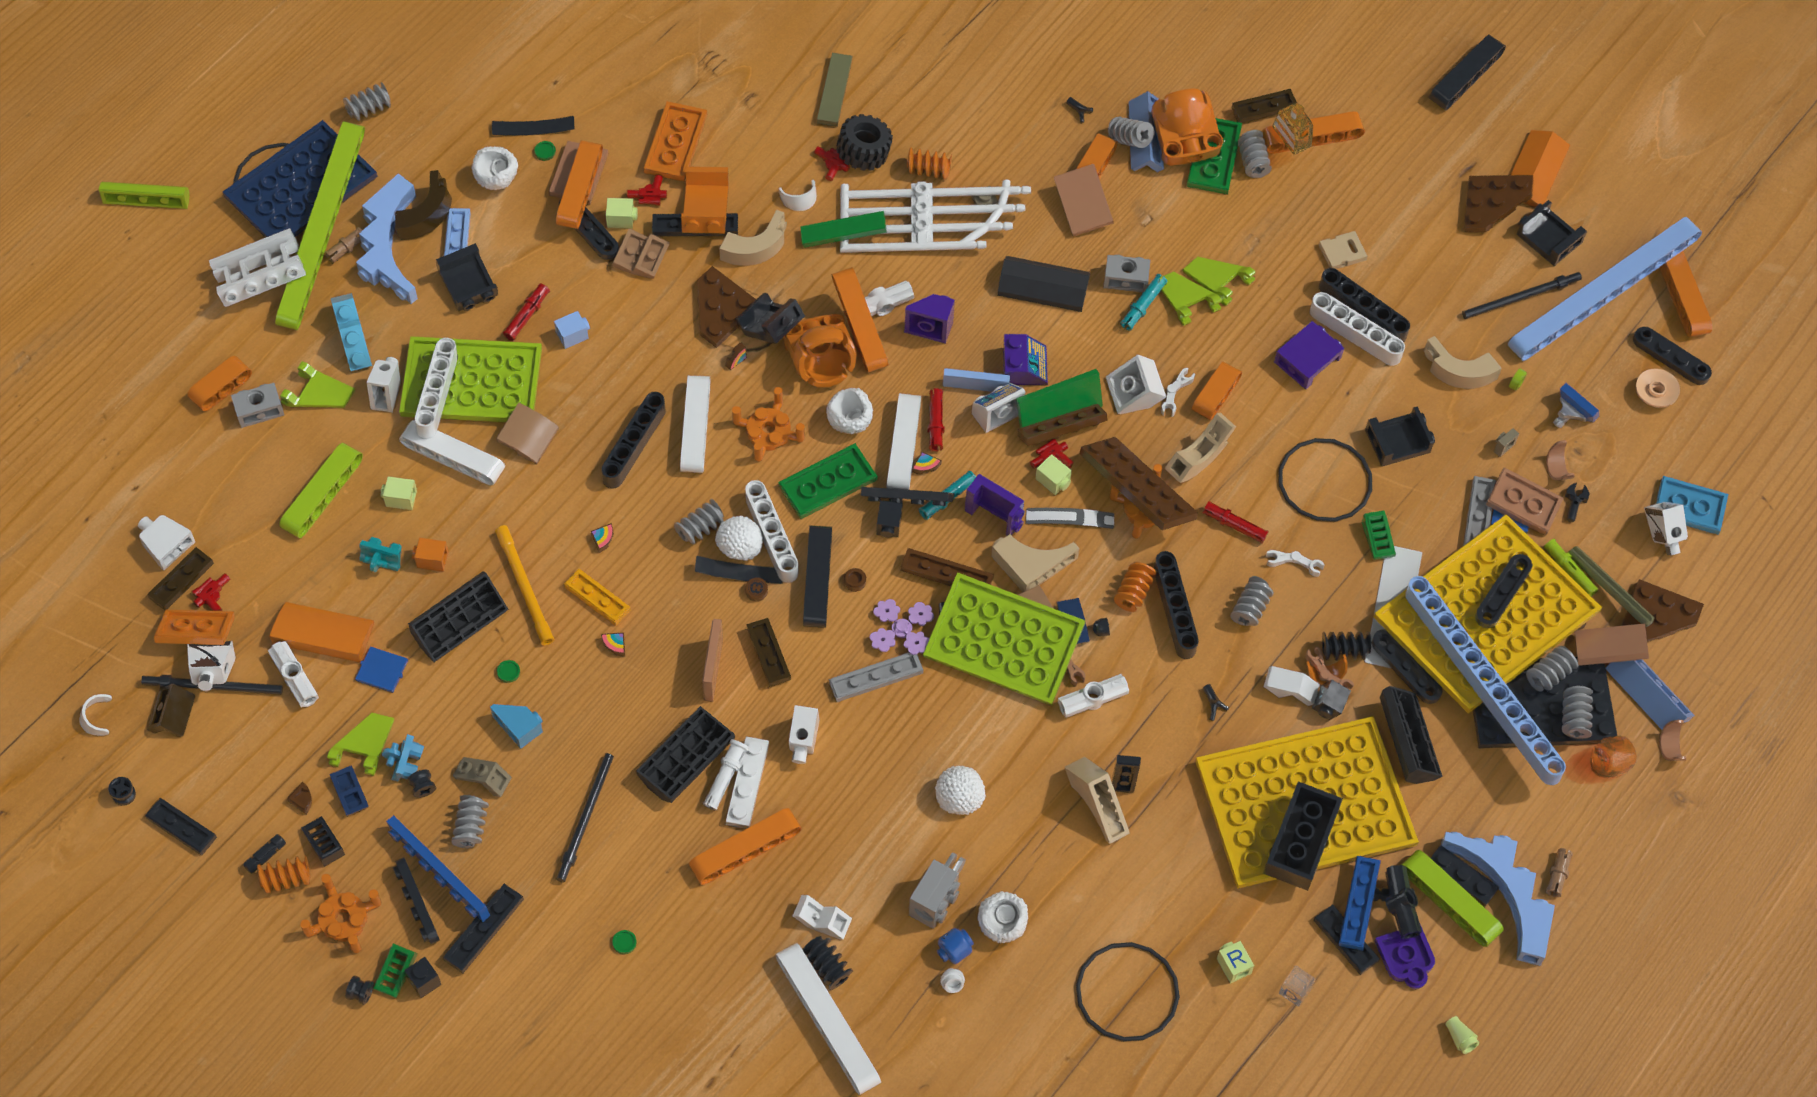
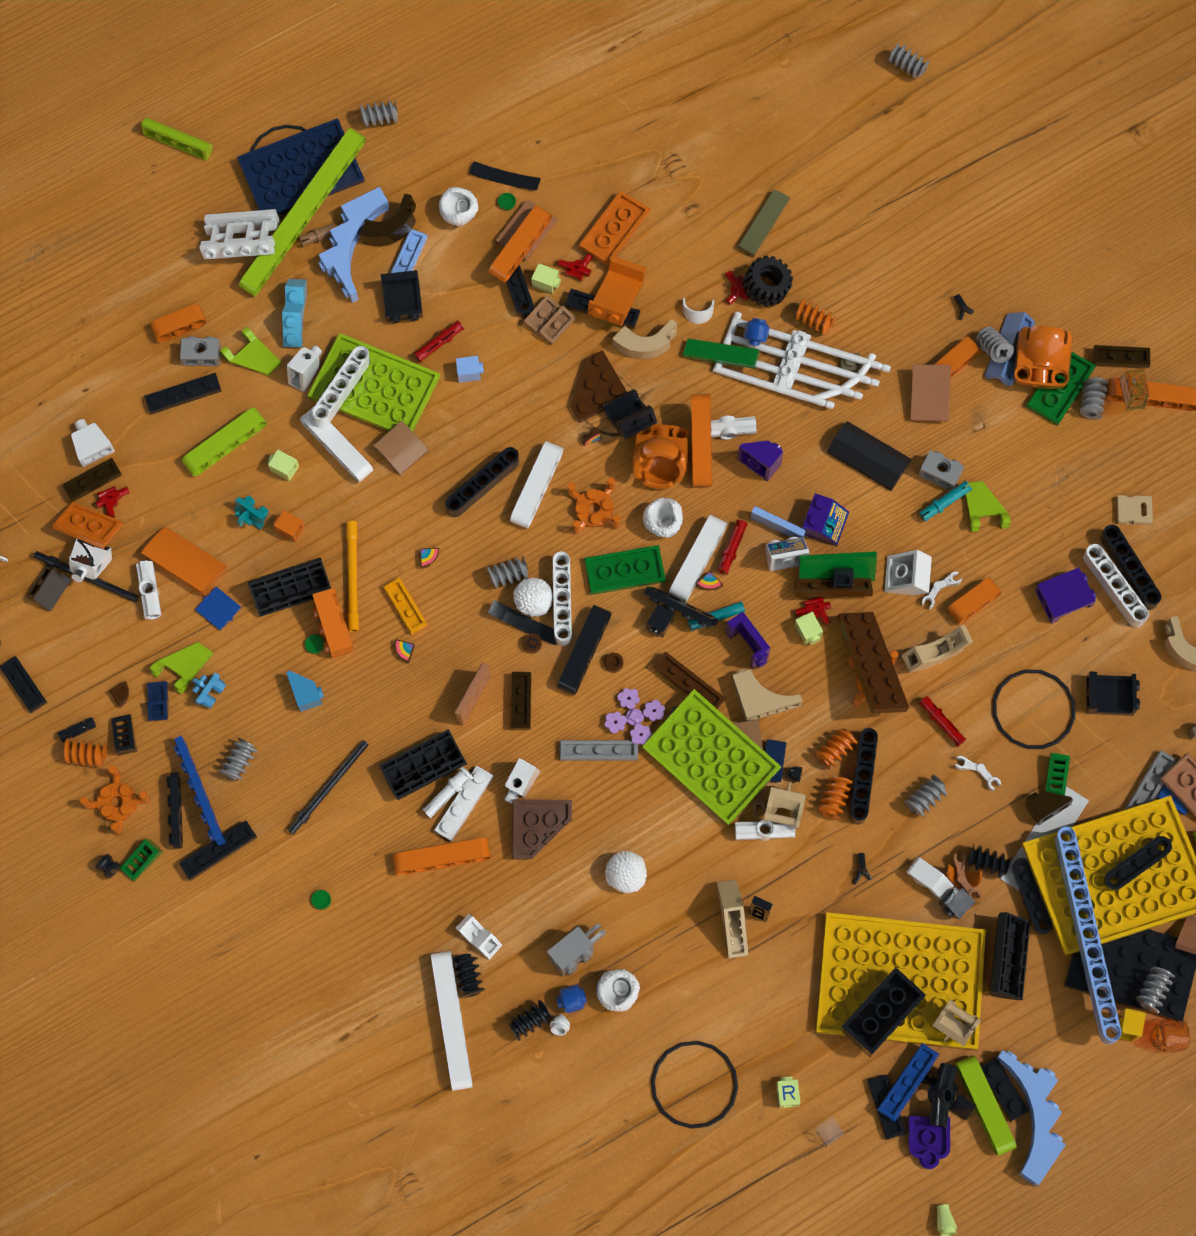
camera: 25 degrees right, 10 degrees up
(252, 455) = (183, 393): none -> black plate
(421, 783) = (213, 715): black wheel -> none
(423, 977) = (158, 874): black brick -> none
(487, 773) = (263, 725): dark tan bracket -> none
(521, 639) = (331, 623): none -> orange wedge
(839, 775) = (537, 824): none -> reddish brown plate
(873, 194) = (756, 331): none -> blue head
(916, 983) = (529, 1019): none -> black piece
(1069, 408) = (842, 577): none -> black plate
(1070, 516) = (809, 669): sticker -> none
(1107, 652) = (788, 800): none -> tan piece
(1154, 636) = (834, 797): none -> orange piece
(1217, 274) = (1016, 496): lime flag -> none
(1381, 569) = (1046, 805): none -> dark brown slope
(1386, 823) = (954, 1028): none -> tan piece
(1428, 908) = (962, 1107): none -> black tile
(1552, 669) = (1150, 943): light grey piece -> none
(1559, 872) = (1084, 1116): medium nougat pin -> none
(1573, 755) = (1131, 1024): none -> yellow panel

